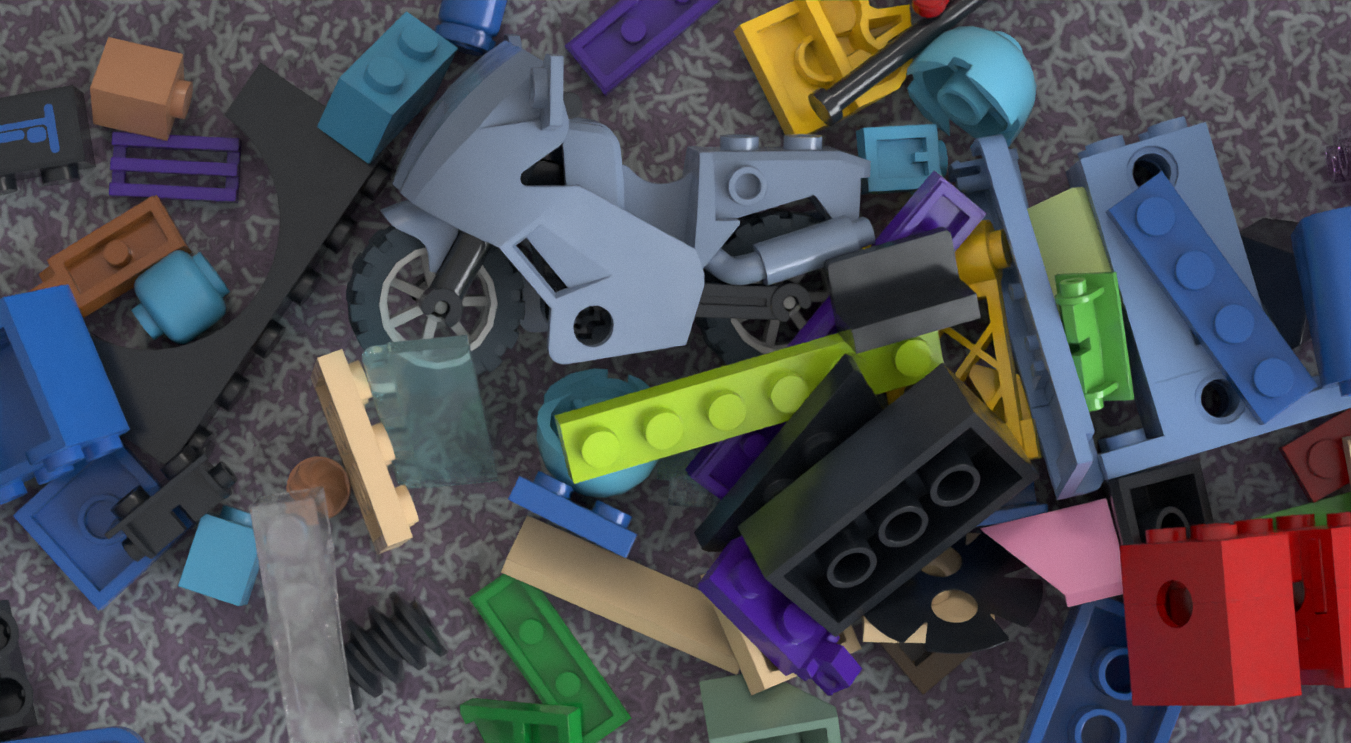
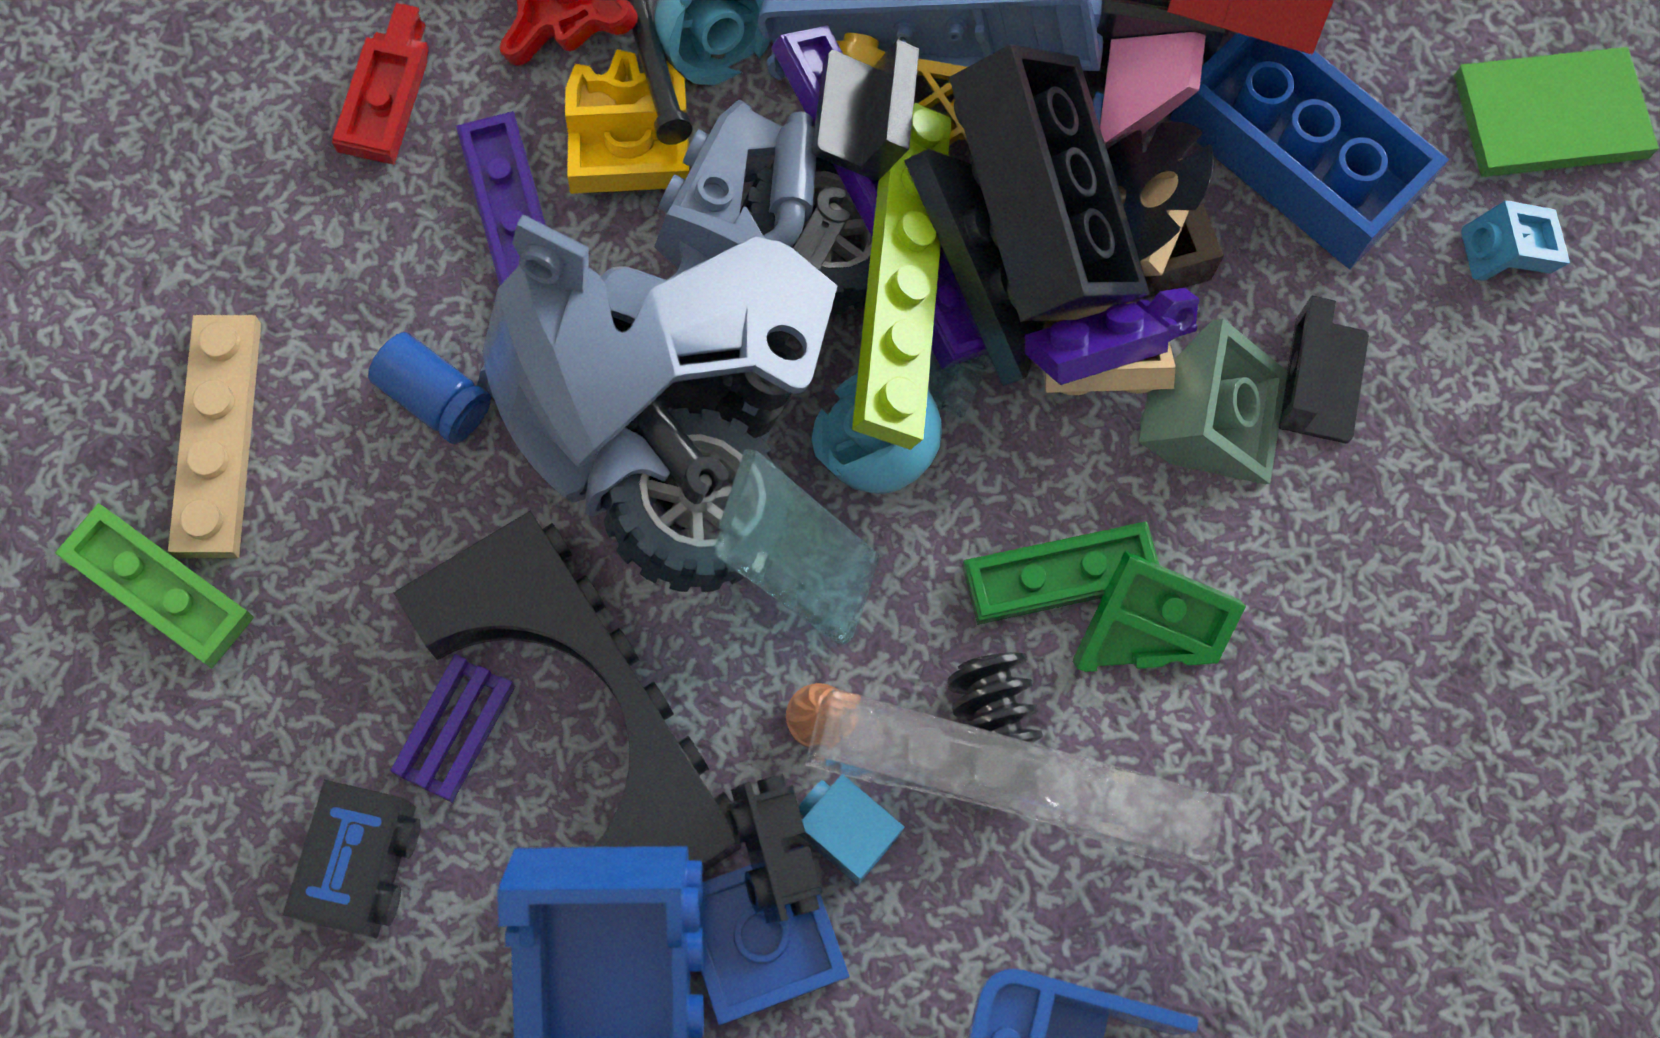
camera: 75 degrees left, 15 degrees down
(114, 255) = (508, 805): dark orange hinge -> none
(139, 89) = (362, 721): nougat brick -> none
(180, 297) = (578, 766): dark azure head -> none
(363, 450) = (808, 635): tan plate -> none
(387, 87) = (474, 484): dark azure brick -> none
(552, 501) = (933, 489): blue plate -> none
(619, 591) = (1031, 477): tan tile -> none
(900, 157) = (750, 83): dark azure bracket -> none

